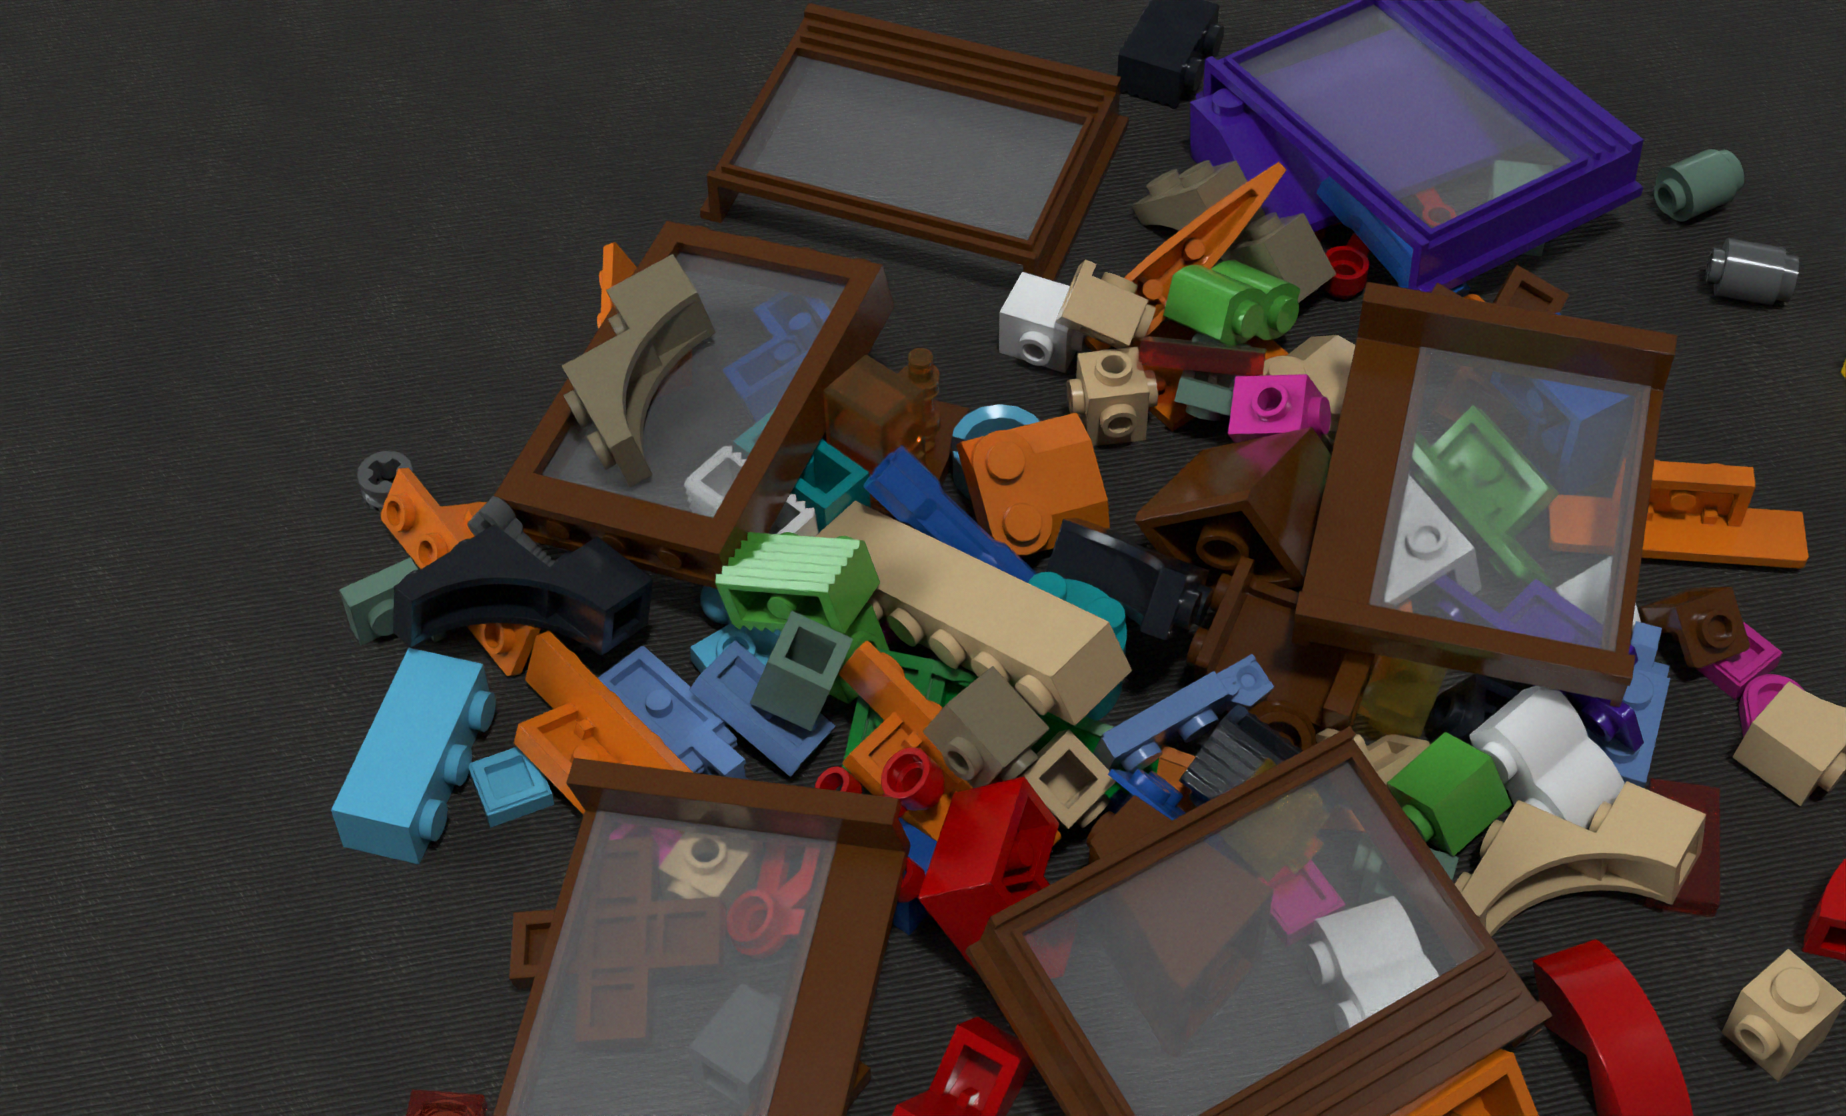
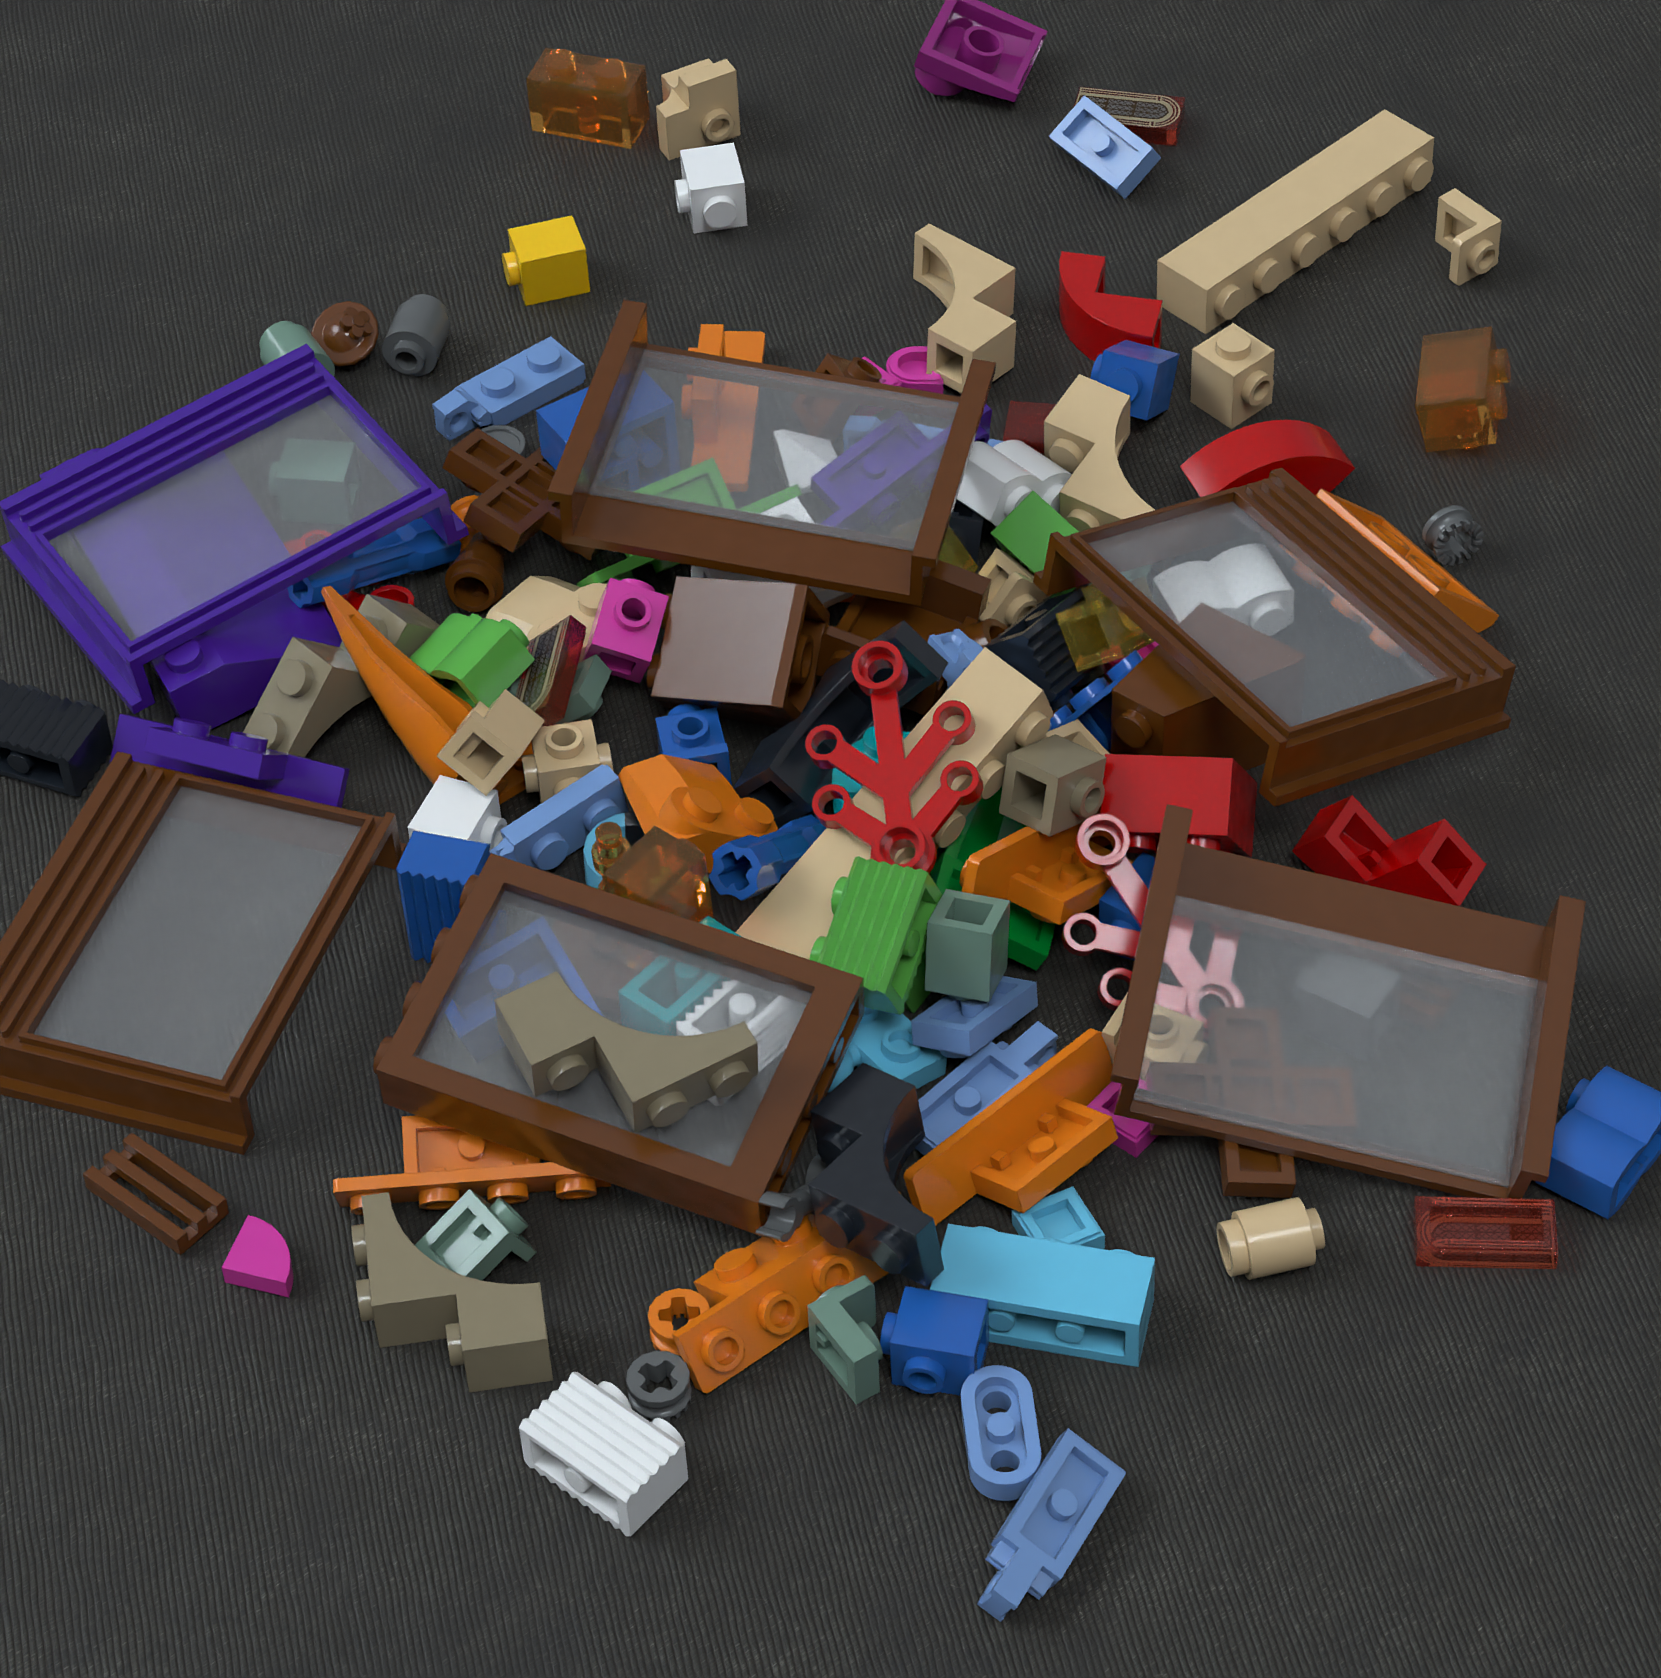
camera: 90 degrees left, 5 degrees down
(163, 751) = (1049, 1523): none -> medium blue hinge
(273, 719) = (1000, 1437): none -> medium blue plate
(314, 437) = (604, 1452): none -> white brick
(364, 668) = (935, 1340): none -> blue brick
(444, 950) = (1270, 1239): none -> tan brick
(452, 476) = (662, 1311): none -> orange bush
(510, 307) = (412, 1299): none -> dark tan arch
(550, 345) = (476, 1236): none -> sand green bracket
(576, 224) = (259, 1259): none -> dark pink tile
(649, 157) = (123, 1165): none -> reddish brown tile
(904, 590) = (895, 775): none -> red plant
(928, 298) = (432, 882): none -> blue brick
(1022, 376) = (563, 821): none -> medium blue hinge
(1118, 157) = (235, 760): none -> dark purple bracket
(1131, 486) = (694, 736): none -> blue brick
(1702, 361) = (509, 389): none -> medium blue hinge
(1747, 218) = (346, 333): none -> reddish brown hat
(1753, 904) = (1140, 372): none -> blue brick

